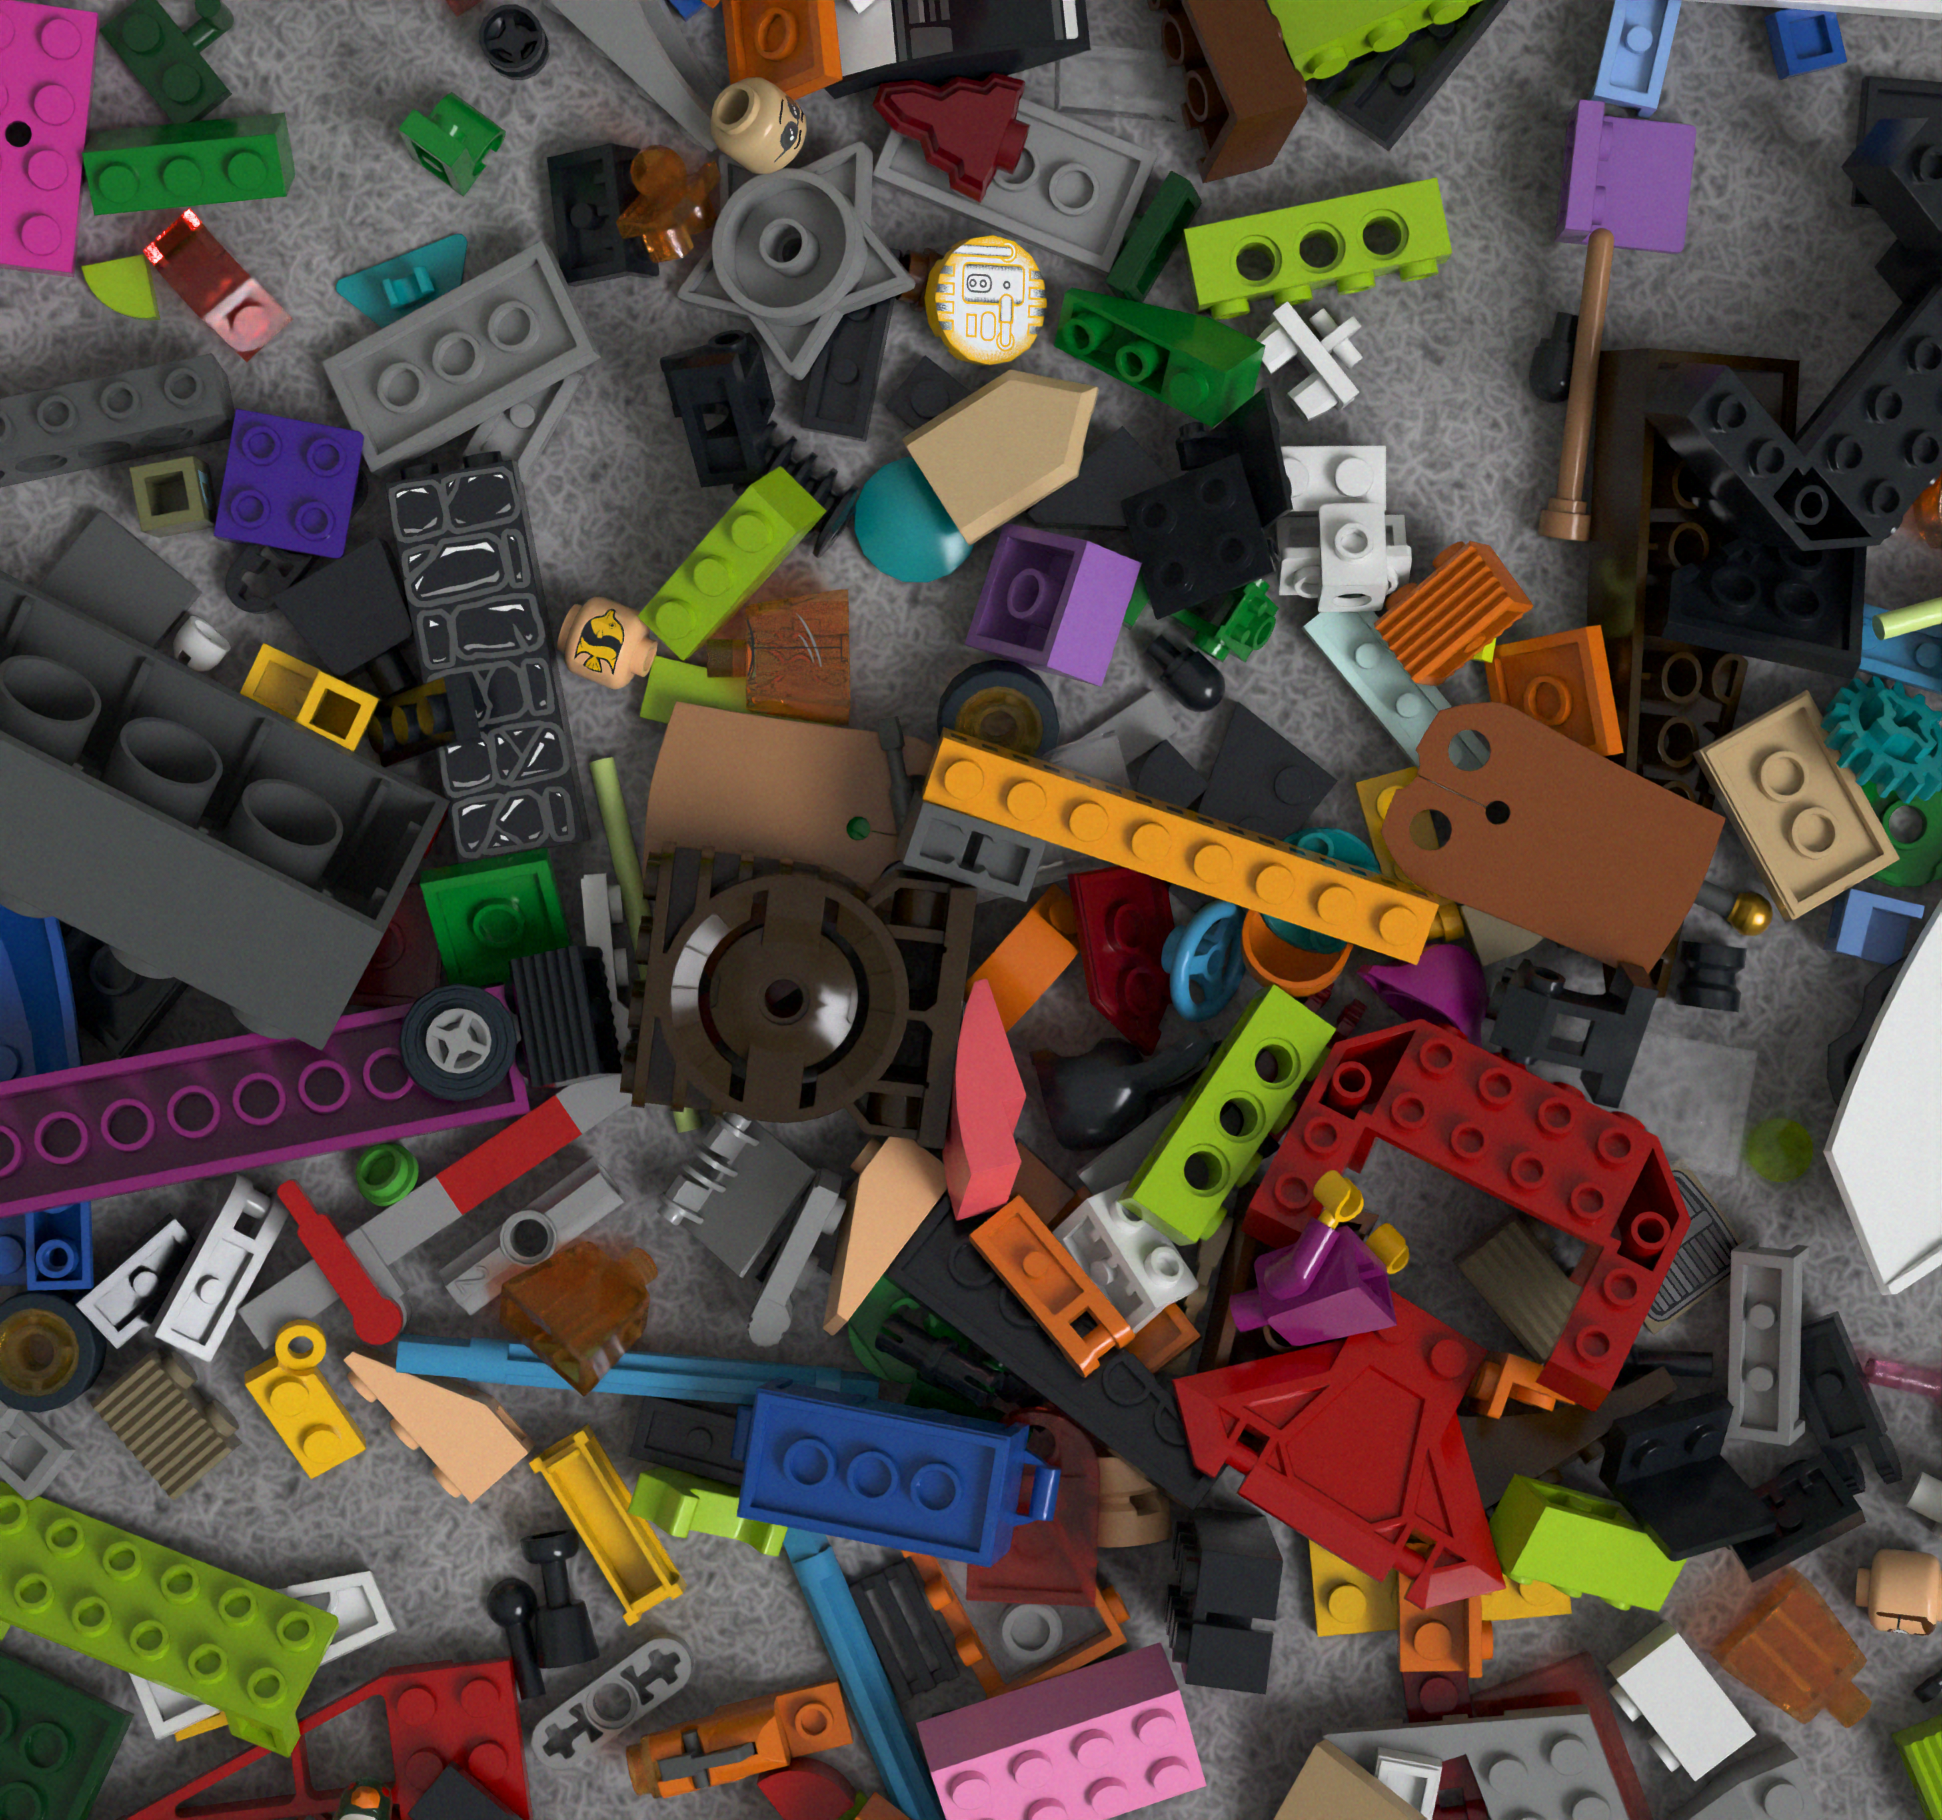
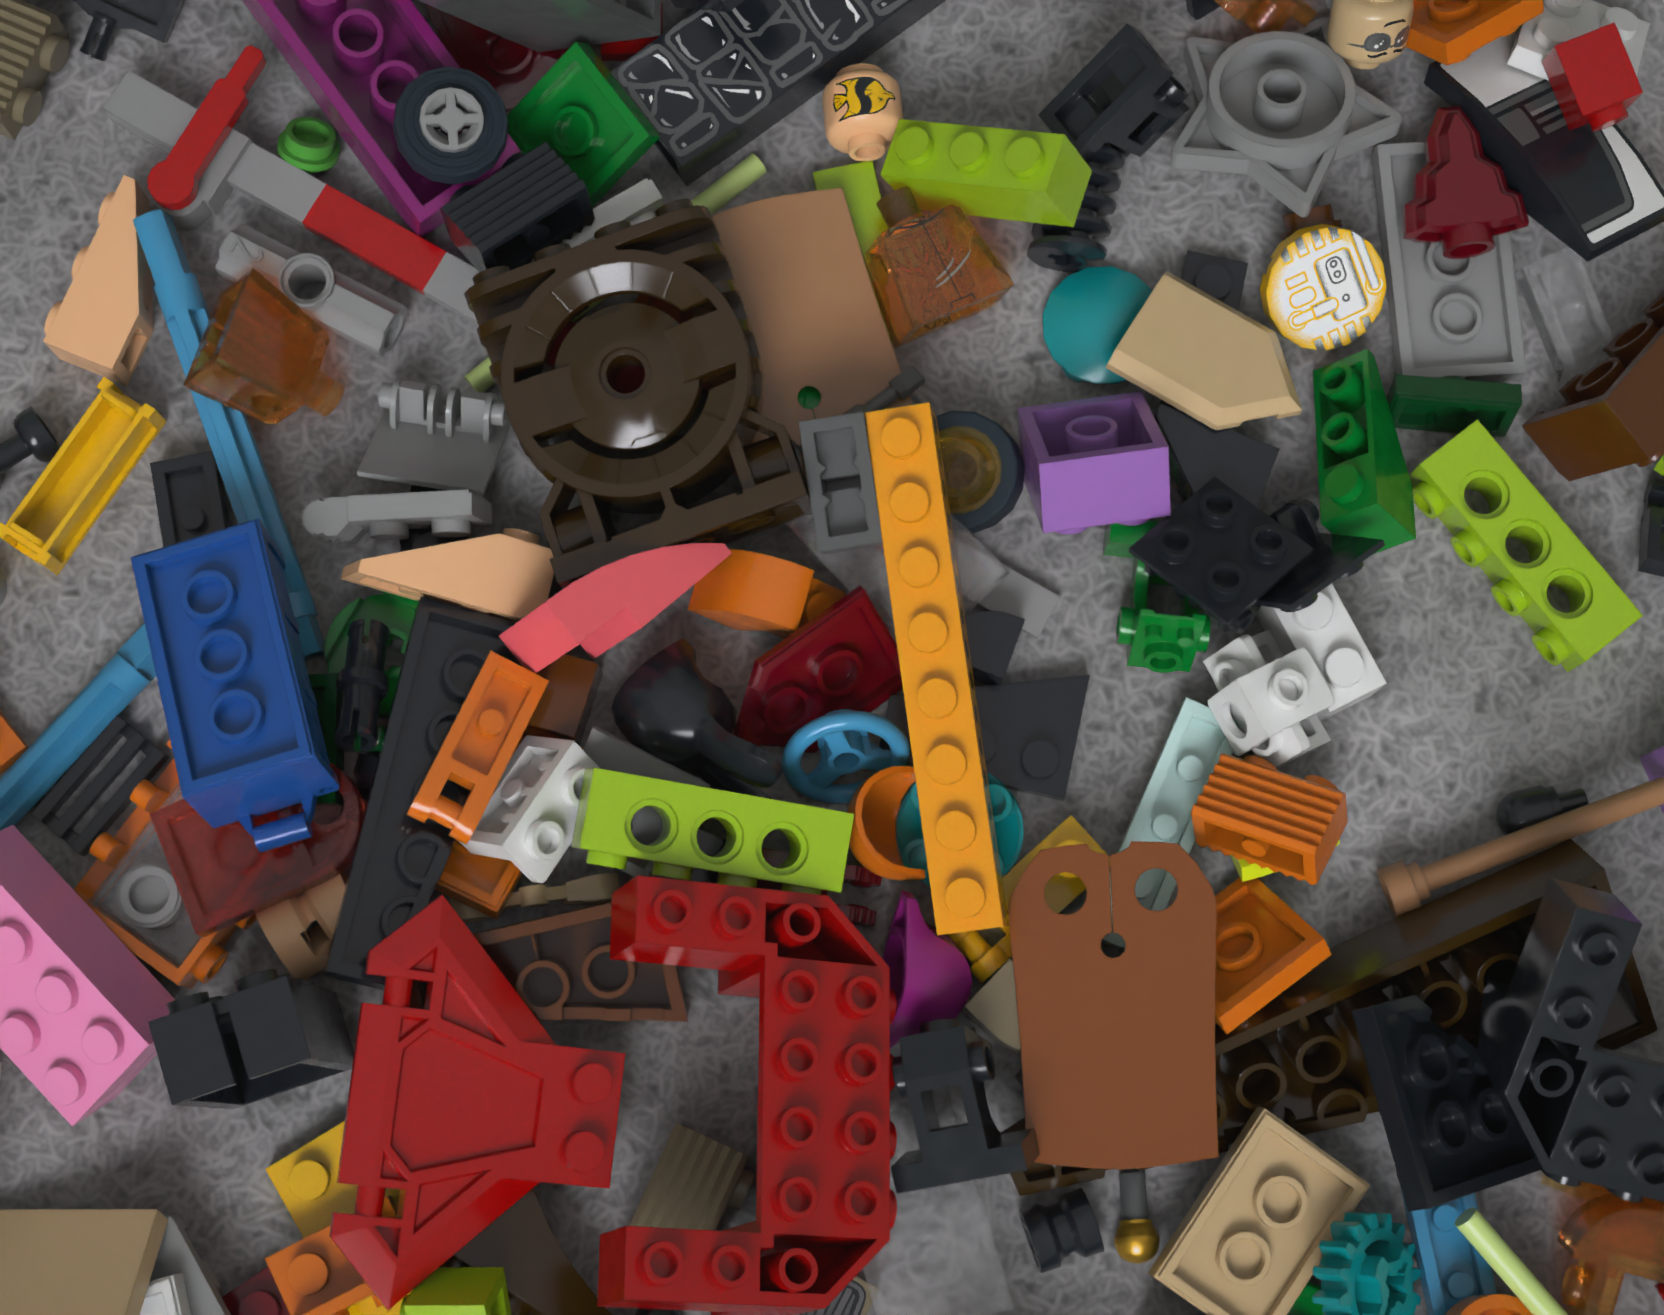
camera: 60 degrees right, 10 degrees down
(219, 1269) = (153, 41): plate -> none
(304, 1403) = (71, 166): yellow hinge -> none
(688, 1501) = (129, 527): lime piece -> none
(848, 372) = (1202, 205): black plate -> none
(1187, 675) = (1089, 619): black cylinder -> none
(1327, 382) = (1408, 614): white hips -> none
(1329, 1278) = (603, 986): magenta torso -> none
(1510, 1377) = (600, 1218): orange bracket -> none

